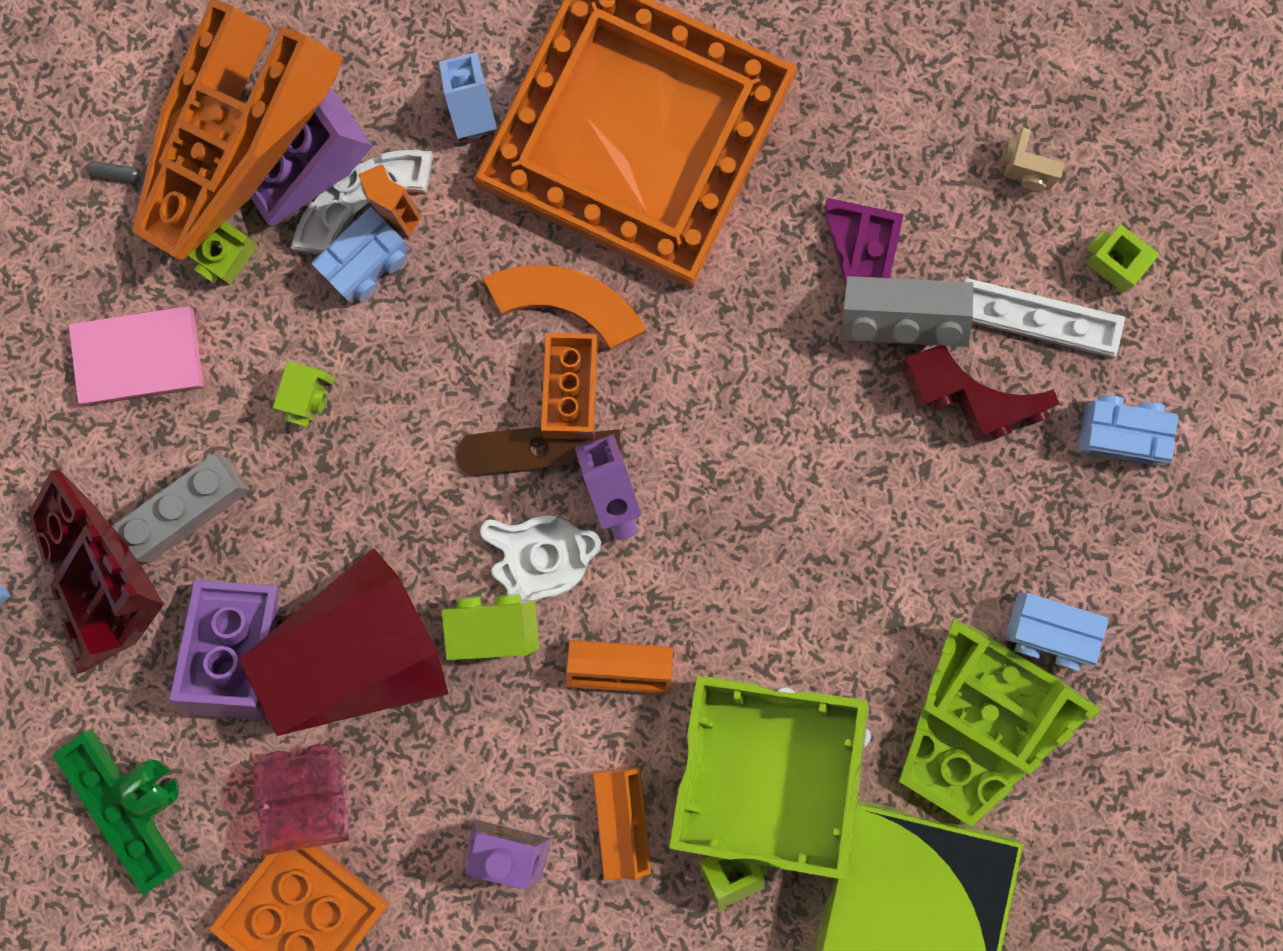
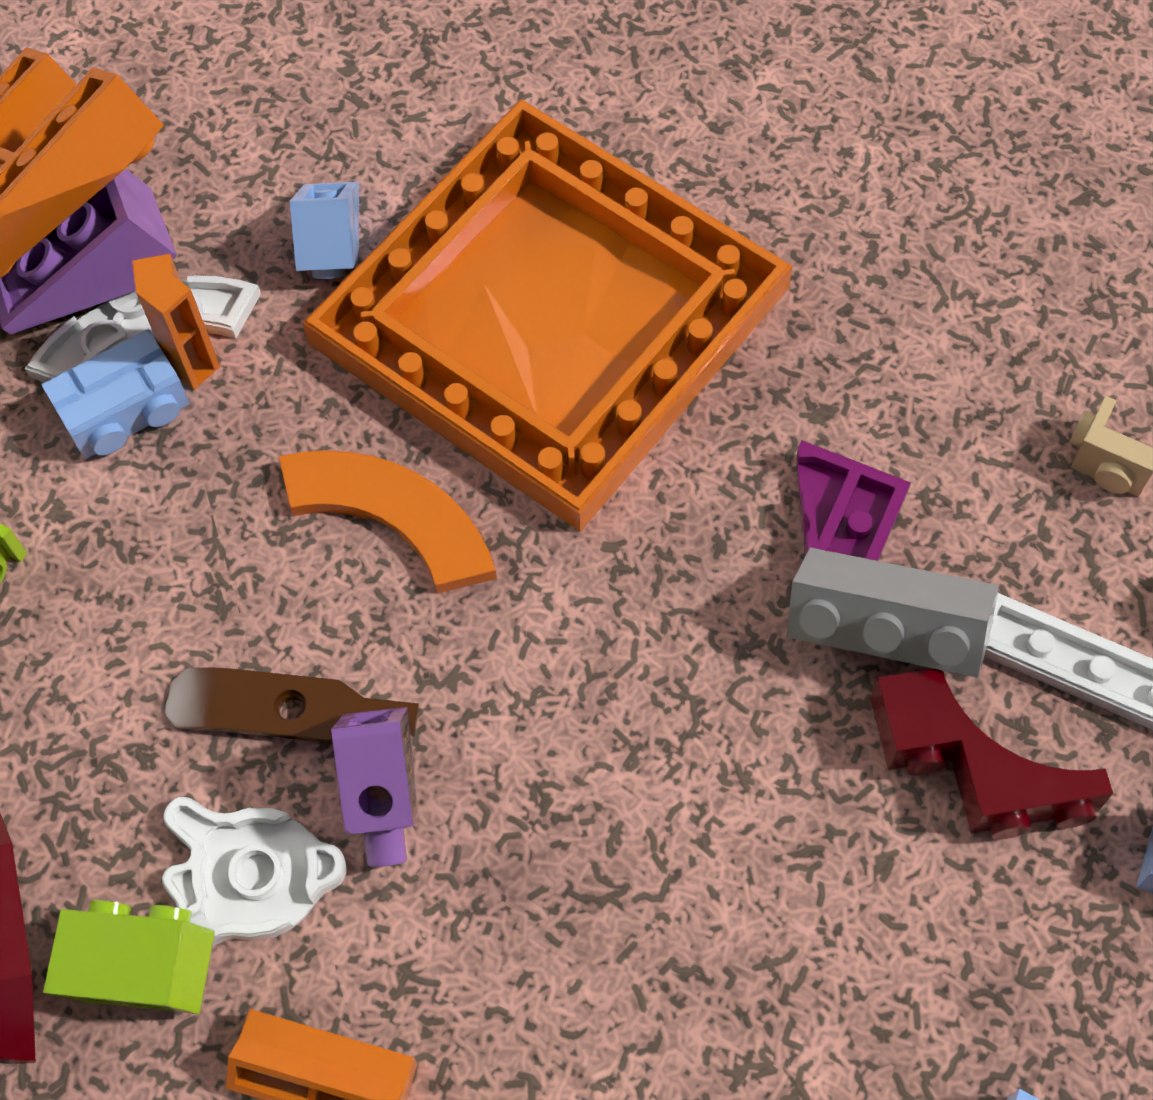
camera: 10 degrees right, 20 degrees down
(569, 386) = (359, 624): orange piece -> none

